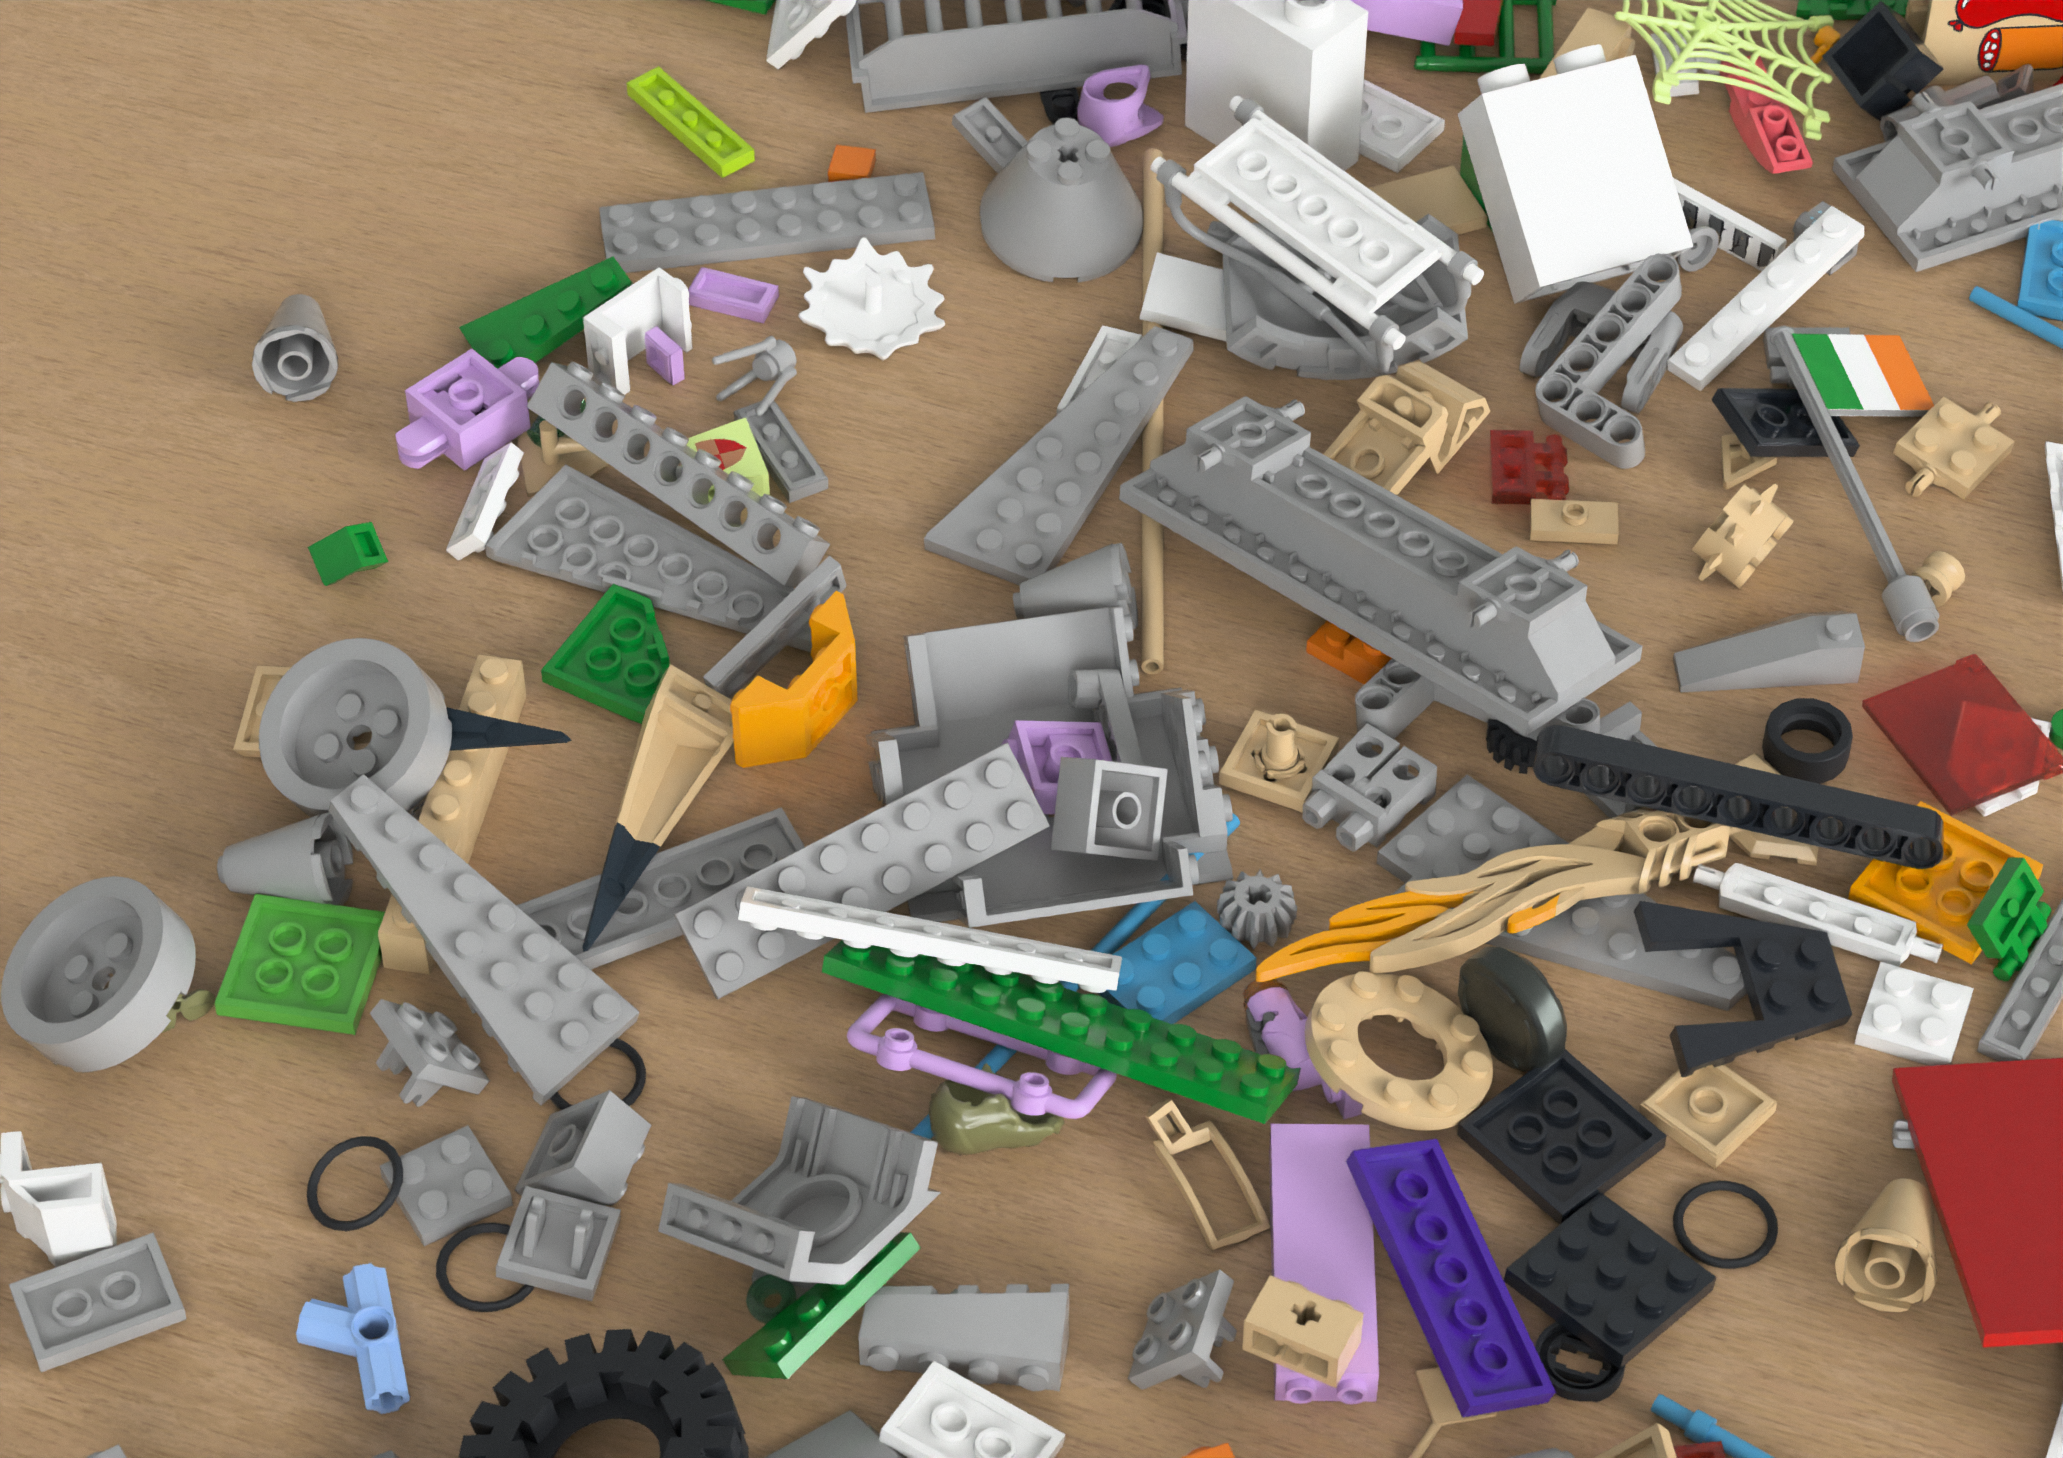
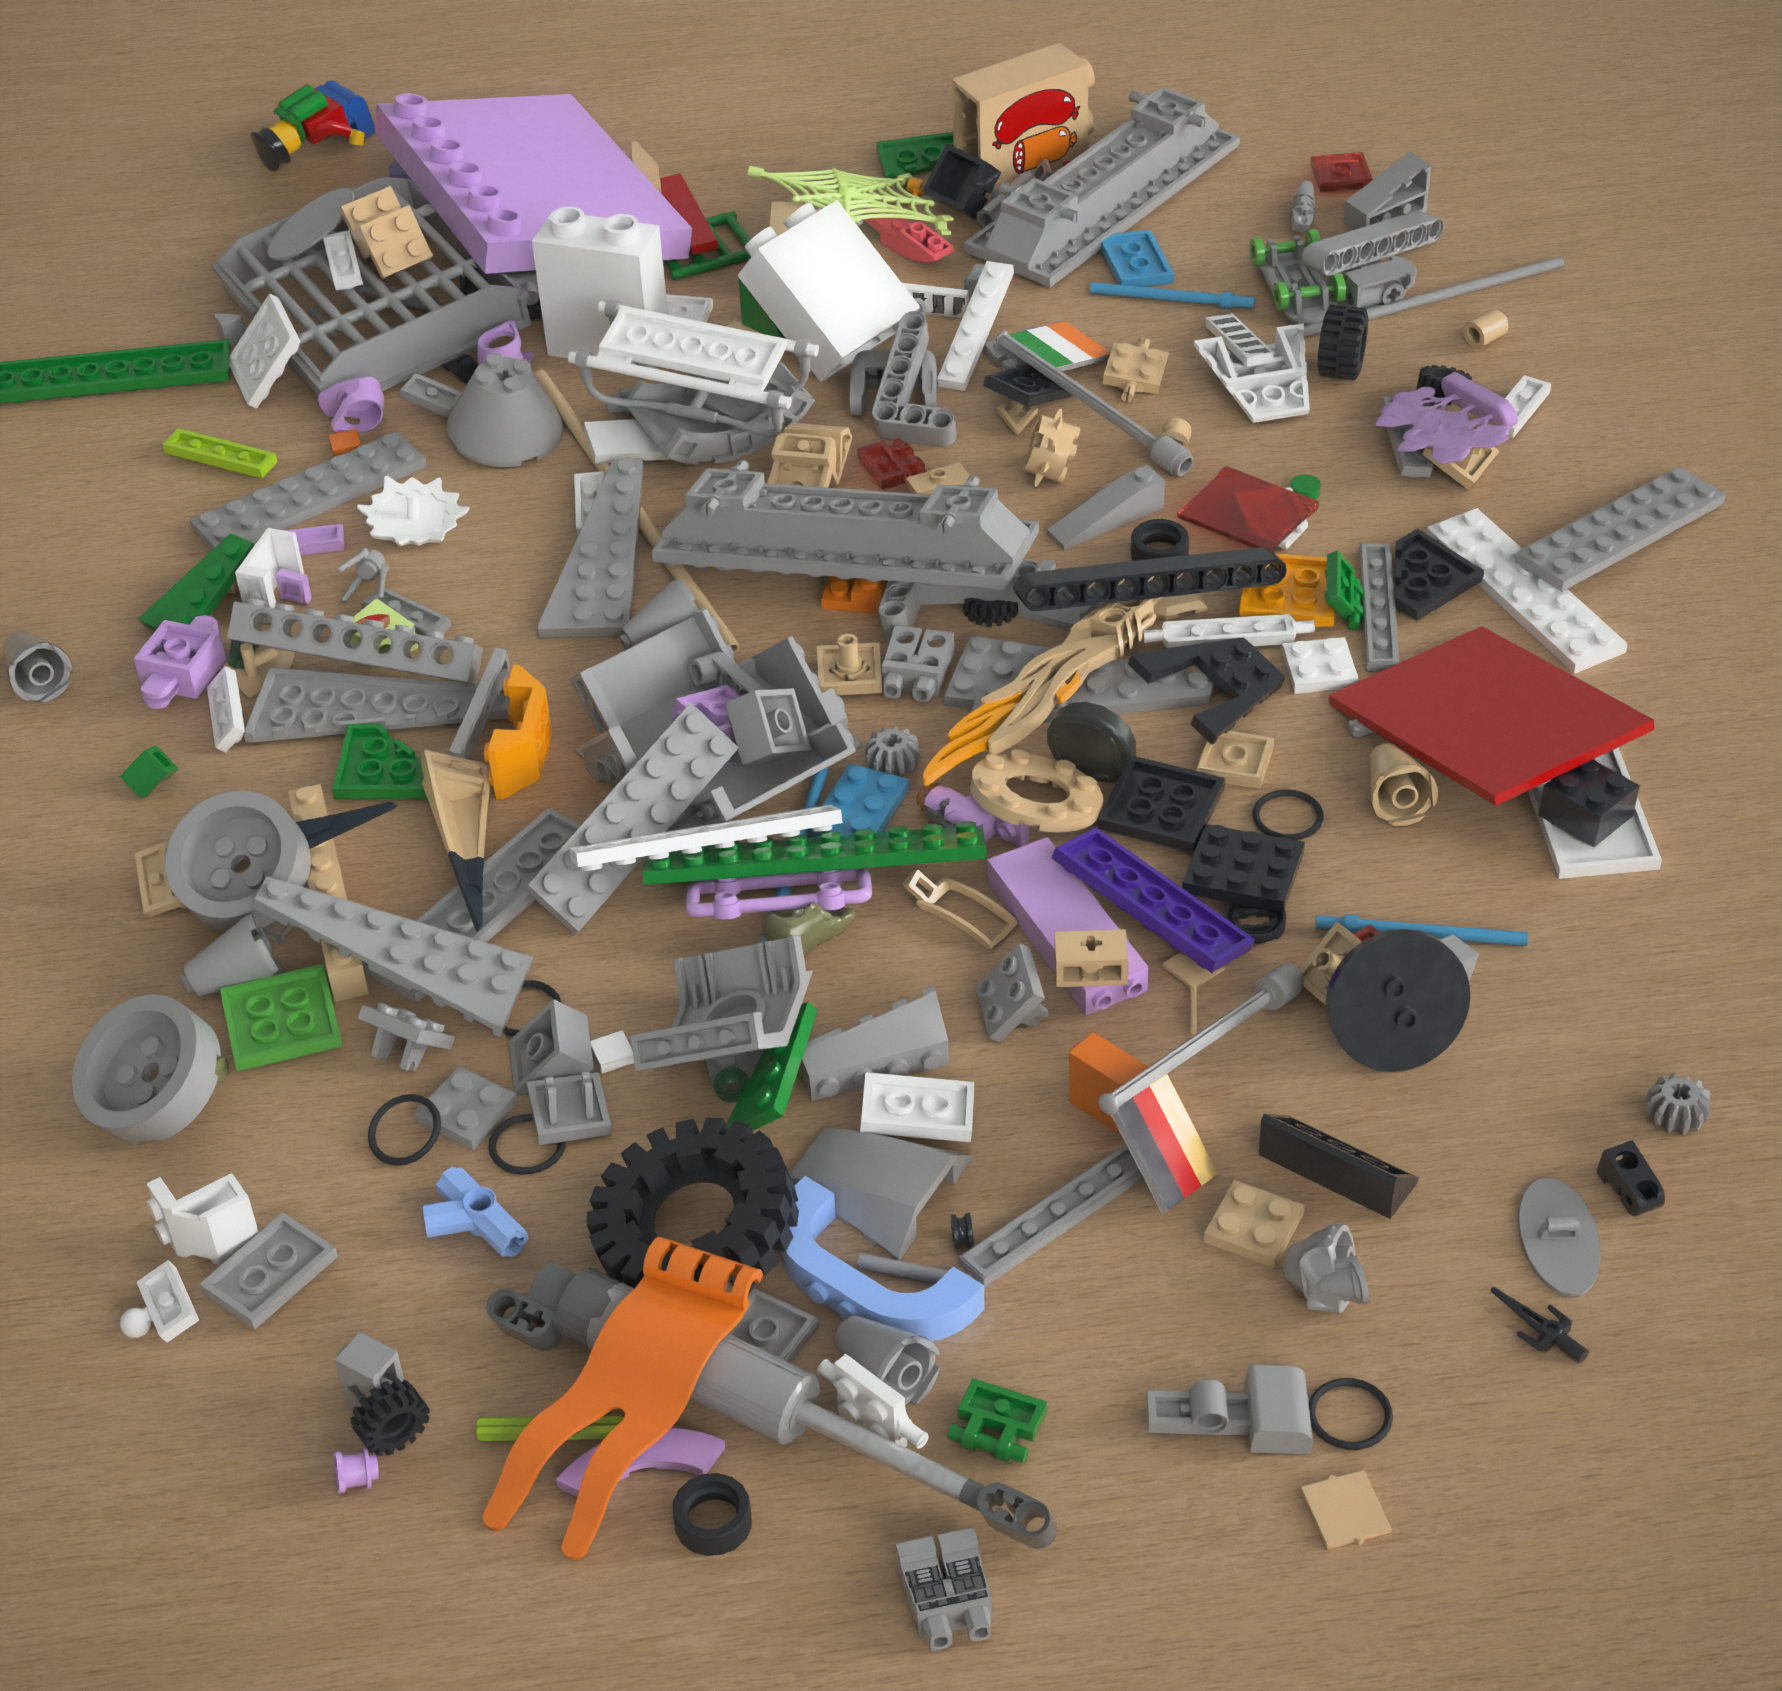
camera: 25 degrees left, 5 degrees down
(652, 1183) = (612, 1051): none -> white tile
(893, 104) = (353, 398): none -> lavender helmet

